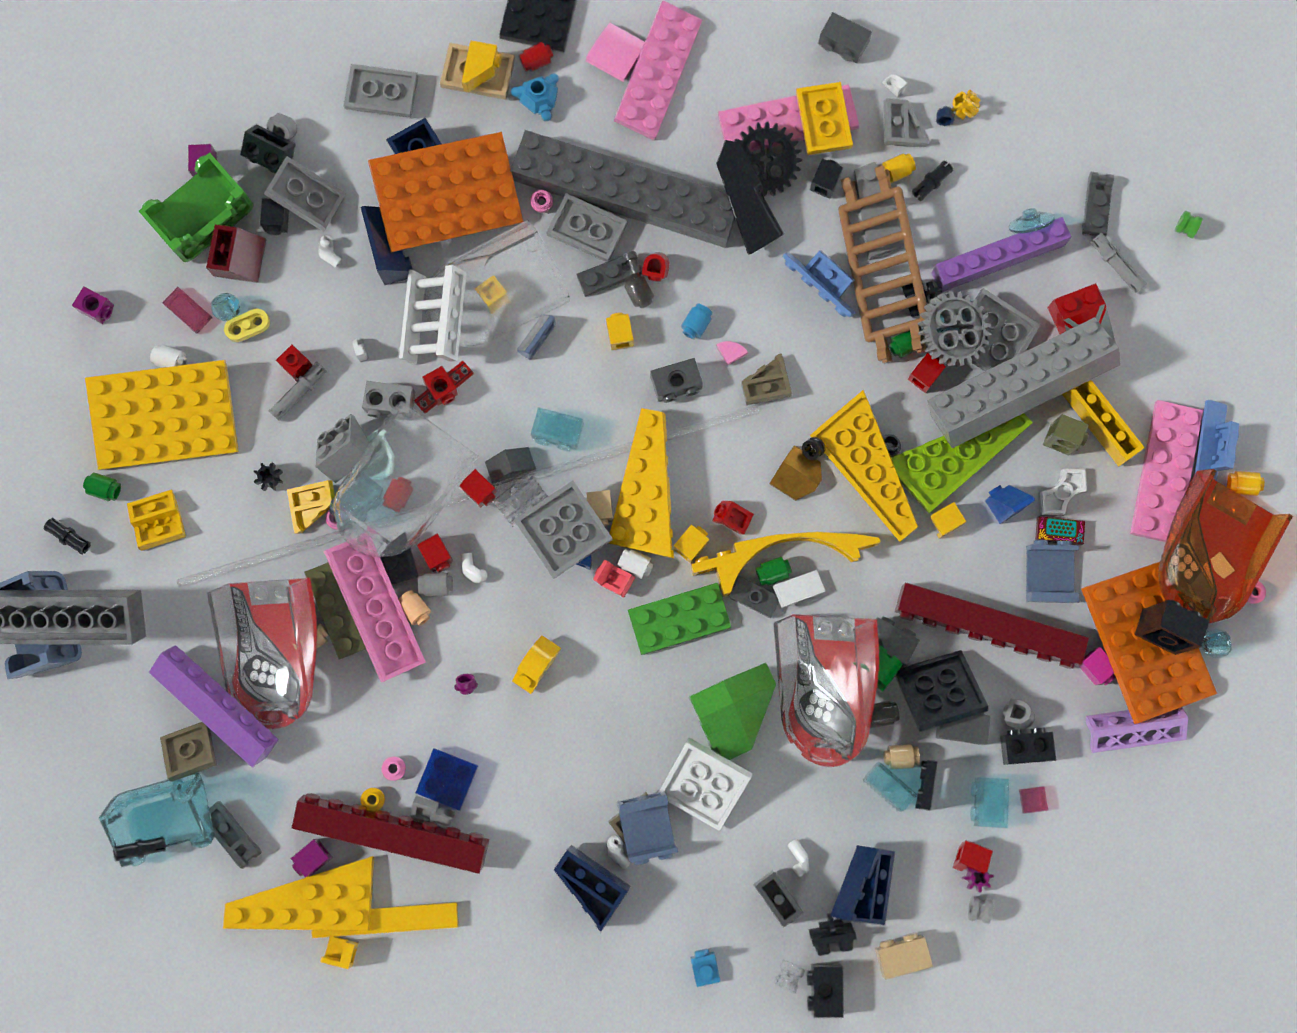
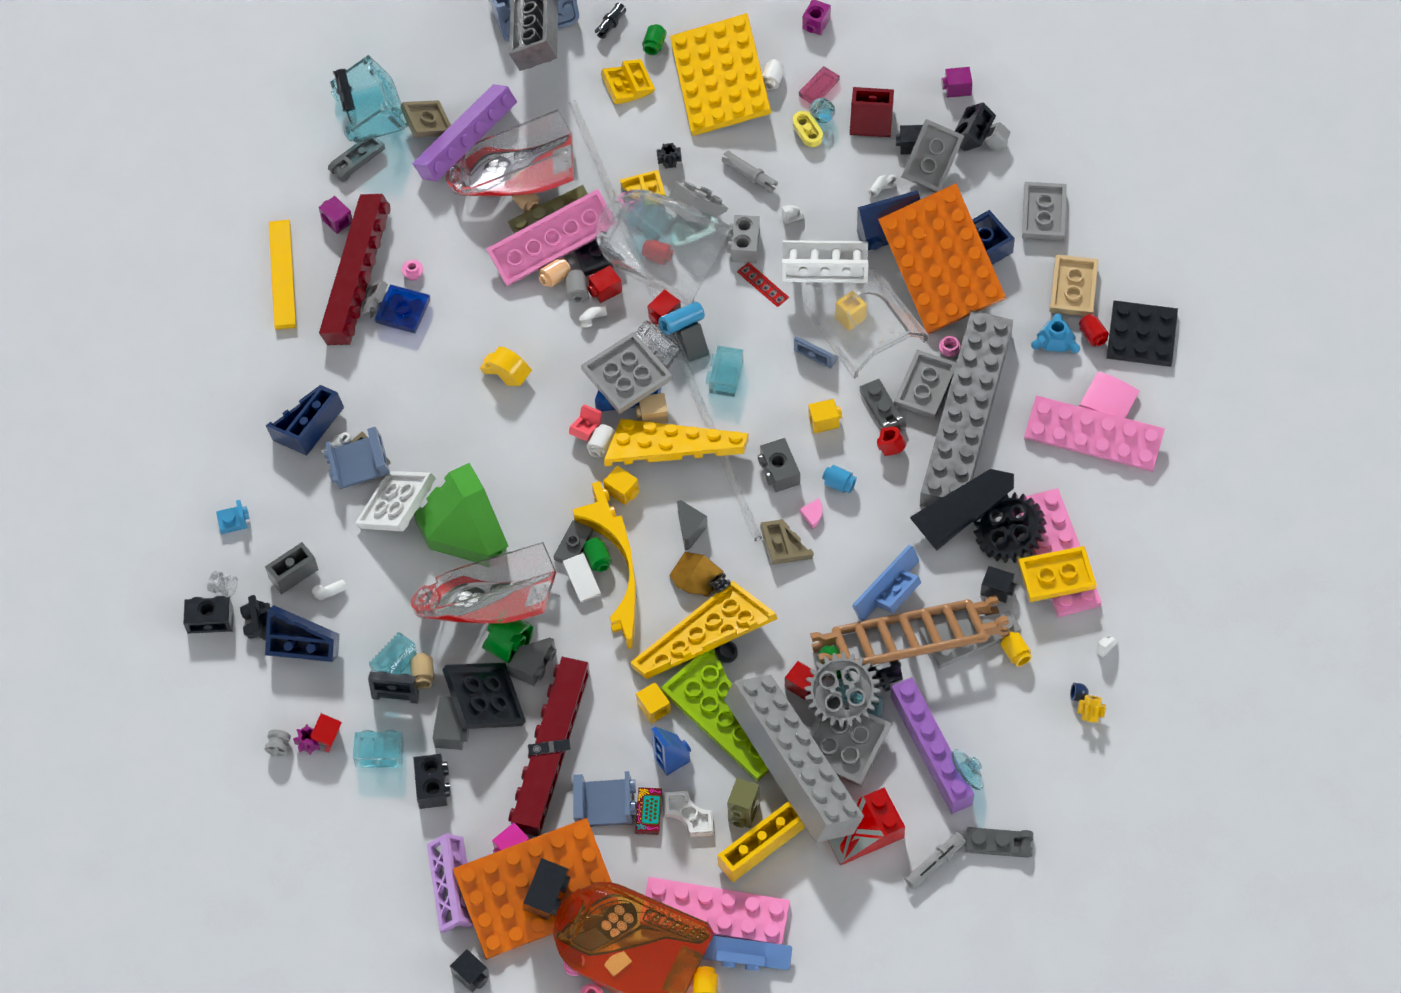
camera: 90 degrees right, 20 degrees down
(191, 212) = (915, 82): bright green windscreen -> none
(294, 362) = (774, 164): red brick -> none
(319, 902) = (298, 224): yellow wing -> none
(340, 952) = (254, 244): yellow panel -> none
(379, 796) = (388, 260): yellow plate -> none
(437, 377) = (760, 269): red brick -> none
(465, 684) = (487, 316): magenta plate -> none
(480, 64) = (1074, 279): yellow slope -> none
(495, 469) = (681, 318): none -> dark azure piece
(638, 290) = (866, 429): clear smoke brick -> none
(679, 618) = (550, 482): bright green plate -> none
(732, 516) = (648, 519): red bracket -> none
(742, 474) = (691, 522): none -> dark grey slope
(844, 38) = (1150, 595): dark grey brick -> none
(884, 714) = (462, 650): clear smoke brick -> none
(901, 125) = (1064, 652): light grey wing -> none
(903, 956) = (236, 677): tan brick -> none
(932, 180) = (1006, 682): black pin -> none
(1001, 624) = (549, 747): none -> black sticker
(1018, 714) = (461, 775): light grey plate -> none
(1033, 799) = (381, 791): clear pink tile -> none
(1188, 224) = (983, 928): bright green wheel -> none
(1217, 643) = (536, 956): clear light blue piece -> none
(1232, 709) = (470, 971): none -> black brick

